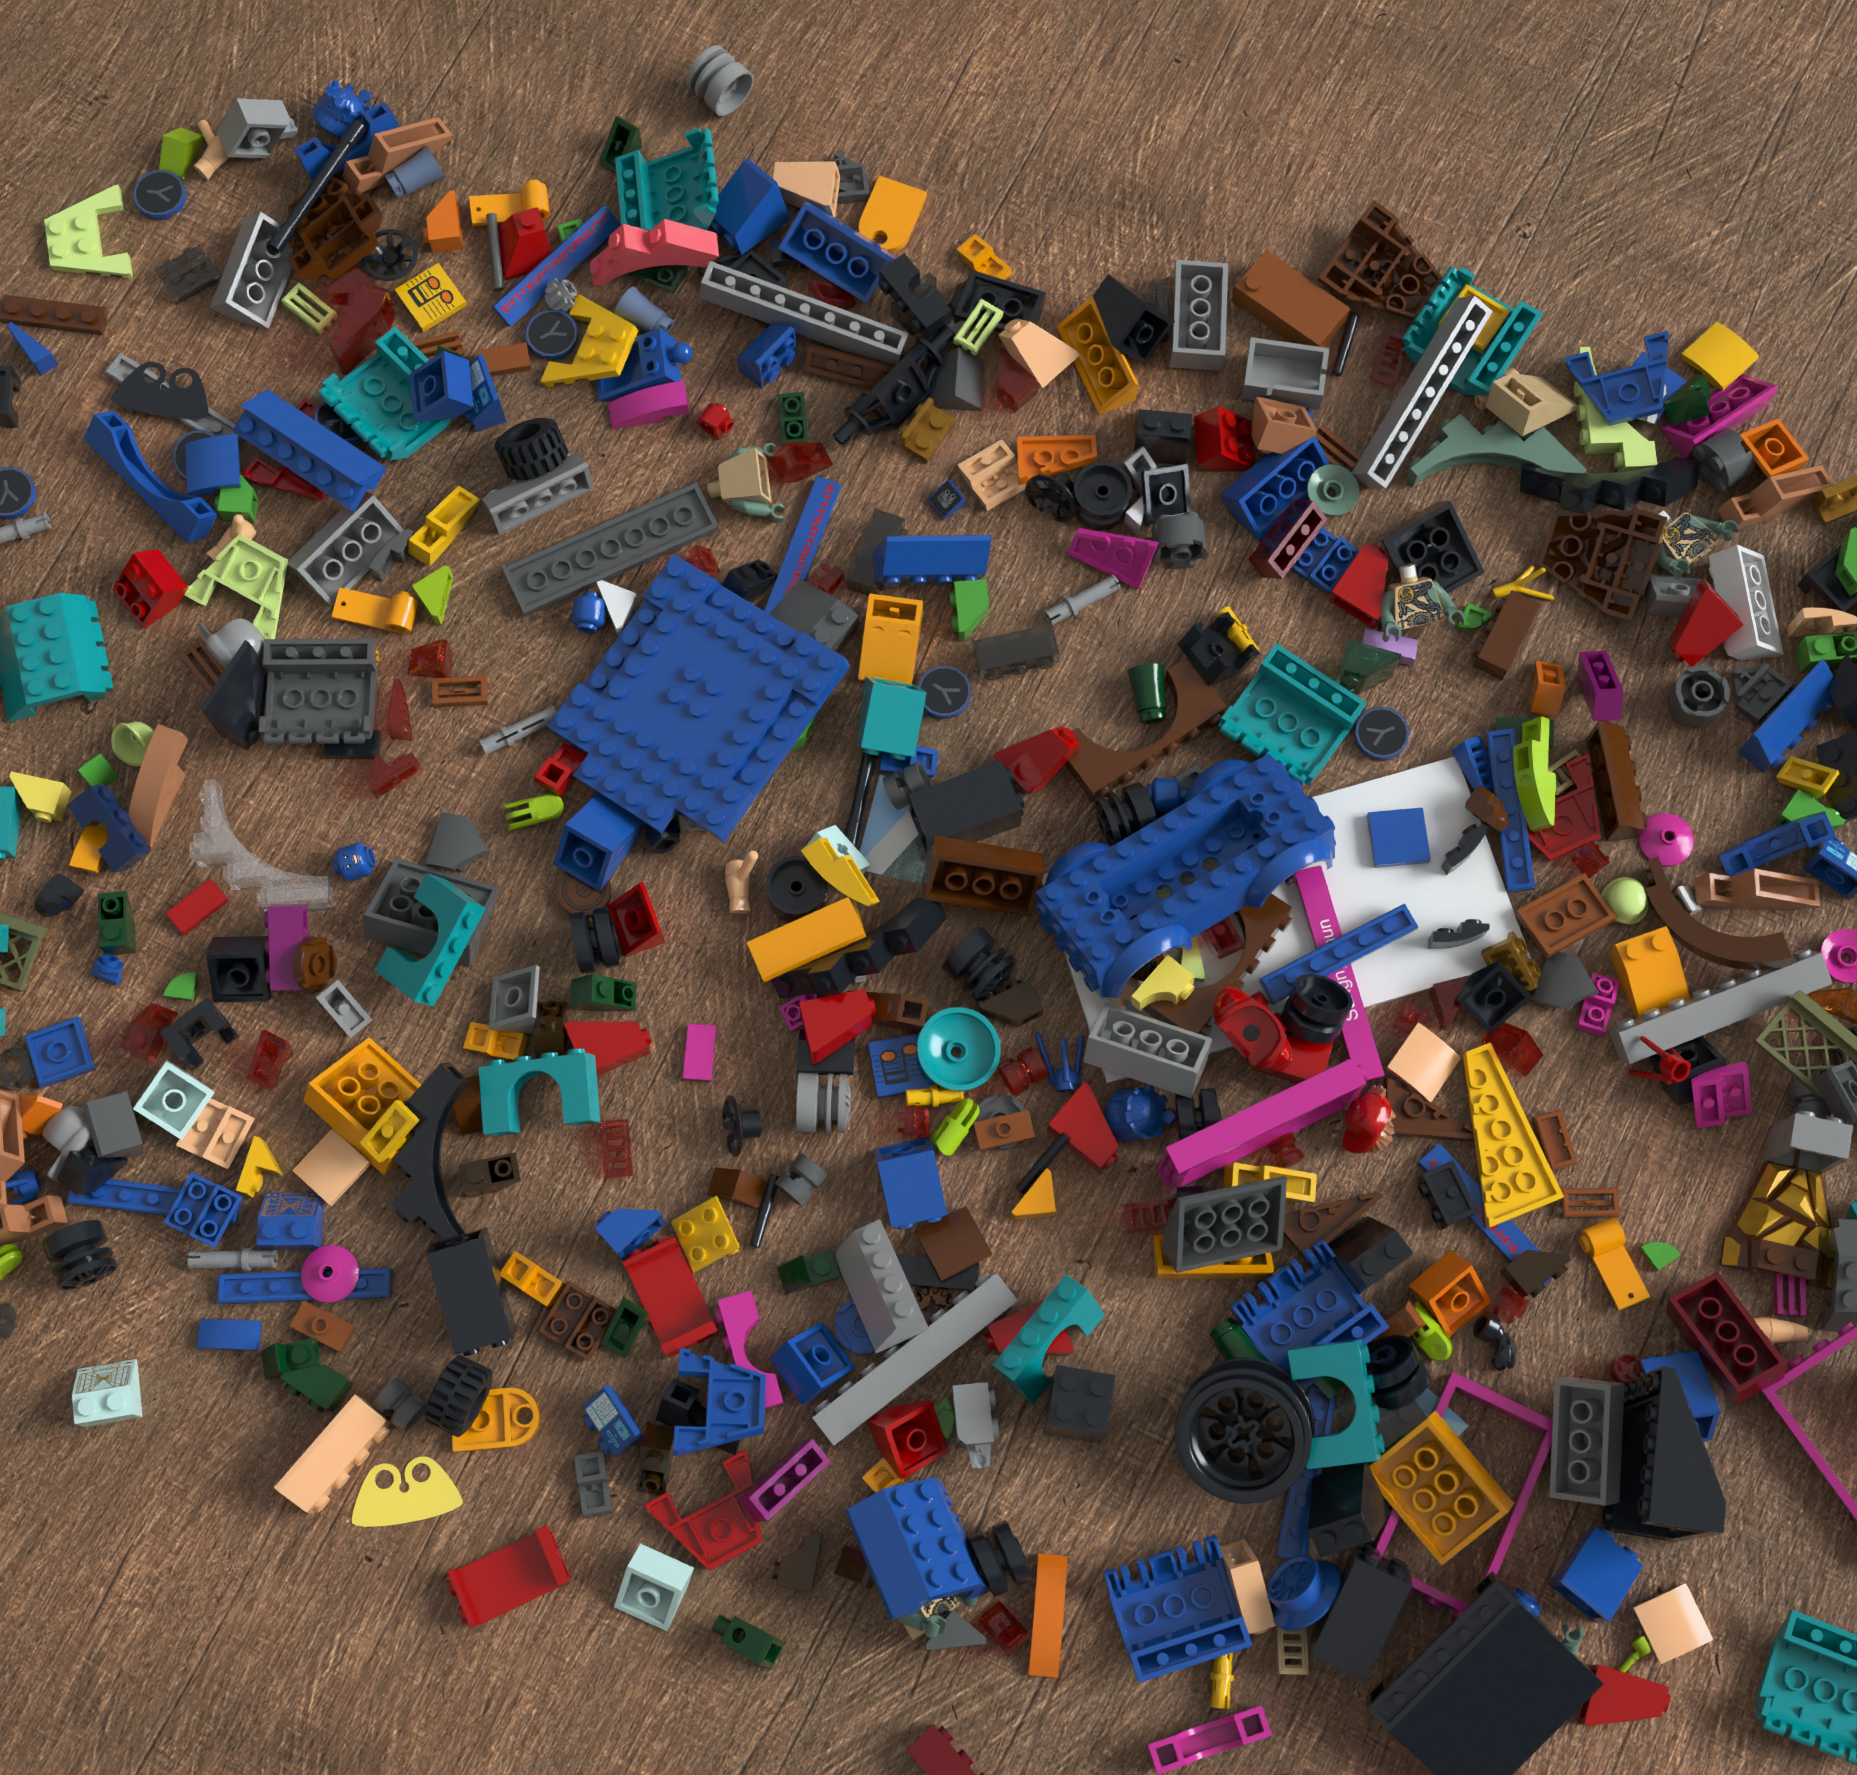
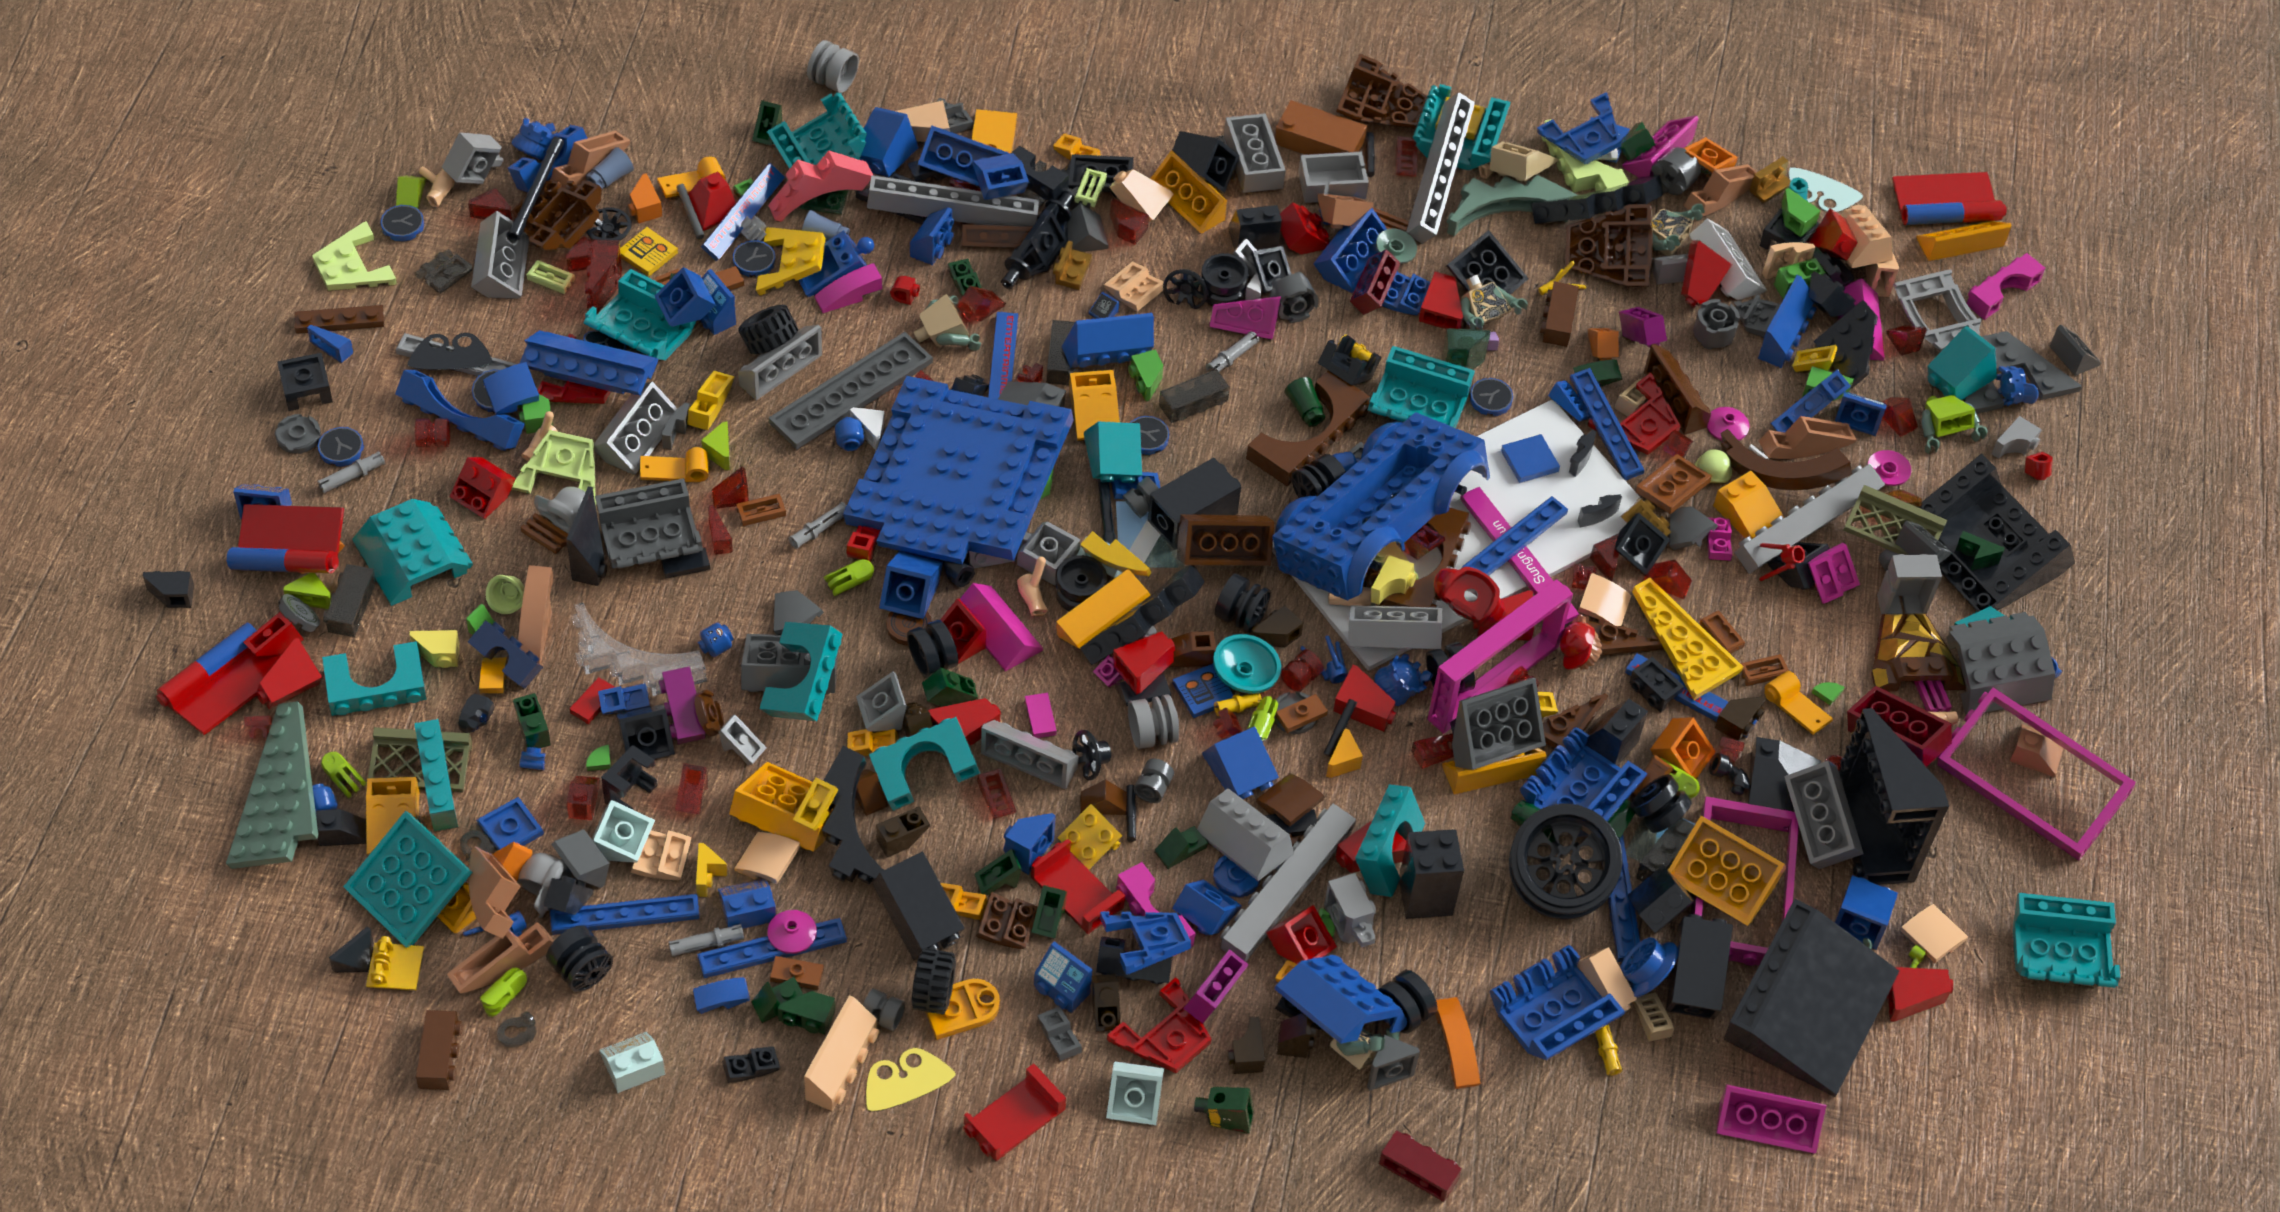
camera: 20 degrees left, 20 degrees down
(109, 501) = (429, 432): none -> clear red wheel
(203, 1210) = (671, 907): blue slope -> none
(230, 916) = (624, 699): none -> blue slope
(237, 1432) = (751, 1065): none -> black slope
(264, 195) = (487, 204): none -> clear red slope
(386, 778) = (726, 575): clear red slope -> none
(582, 1260) = (999, 872): none -> dark green slope
(667, 1104) = (1028, 753): none -> light grey slope
(686, 918) = (1005, 634): none -> dark pink slope
(767, 819) = (1051, 544): none -> light grey hinge
(865, 294) = (1000, 176): none -> blue slope
(1004, 1628) = (1432, 1056): clear red slope -> none
(1039, 757) = (1242, 454): red slope -> none
(1053, 454) = (1163, 263): orange wing -> none
(1208, 1739) = (1632, 1081): dark pink arch -> none
(1316, 1008) = (1514, 572): black wheel -> none
(1347, 1363) = (1625, 794): teal arch -> none
(1474, 618) = (1533, 310): bright green tile -> none
(1487, 808) = (1587, 420): reddish brown rock -> none
(1533, 781) = (1616, 395): lime slope -> none
(1554, 1350) = (1768, 766): none -> black slope
(1720, 355) = (1648, 109): yellow slope -> none

